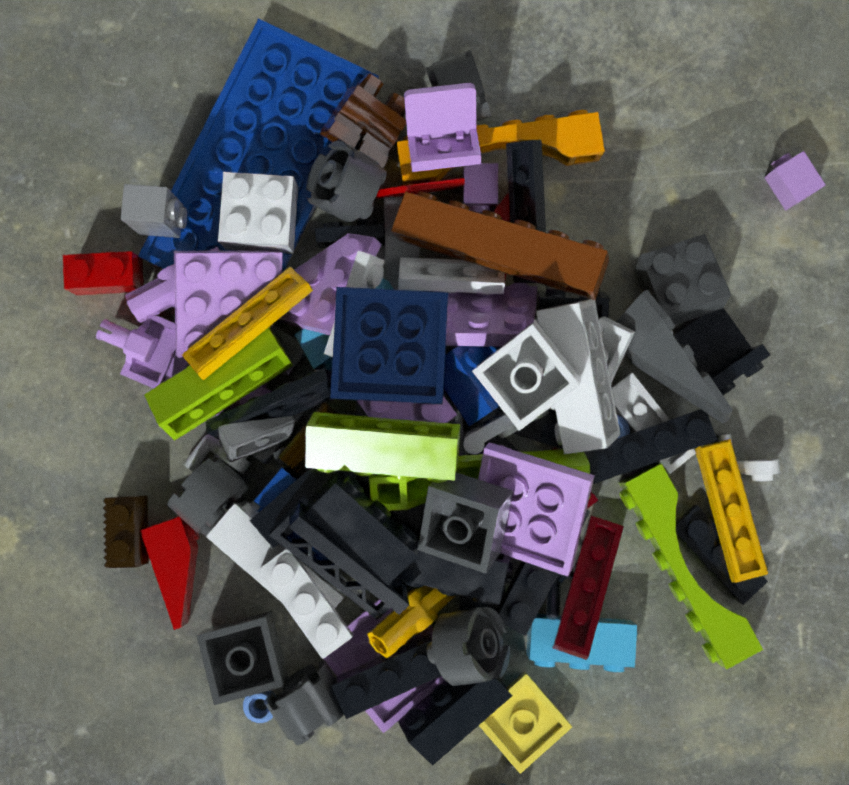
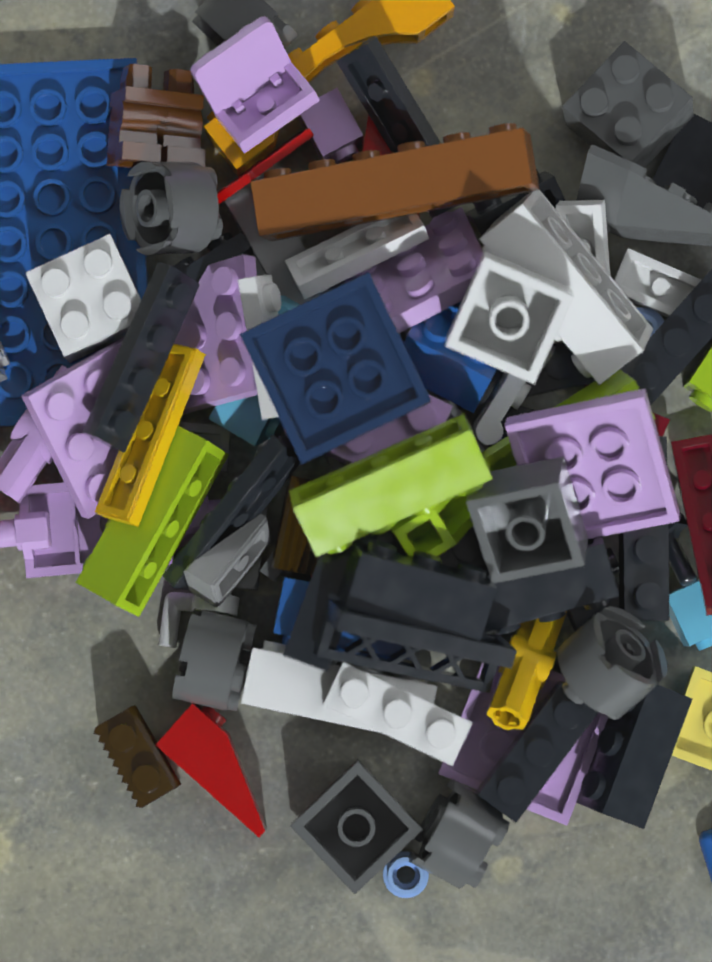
camera: 30 degrees left, 0 degrees up
(268, 269) = (141, 357): none -> black plate

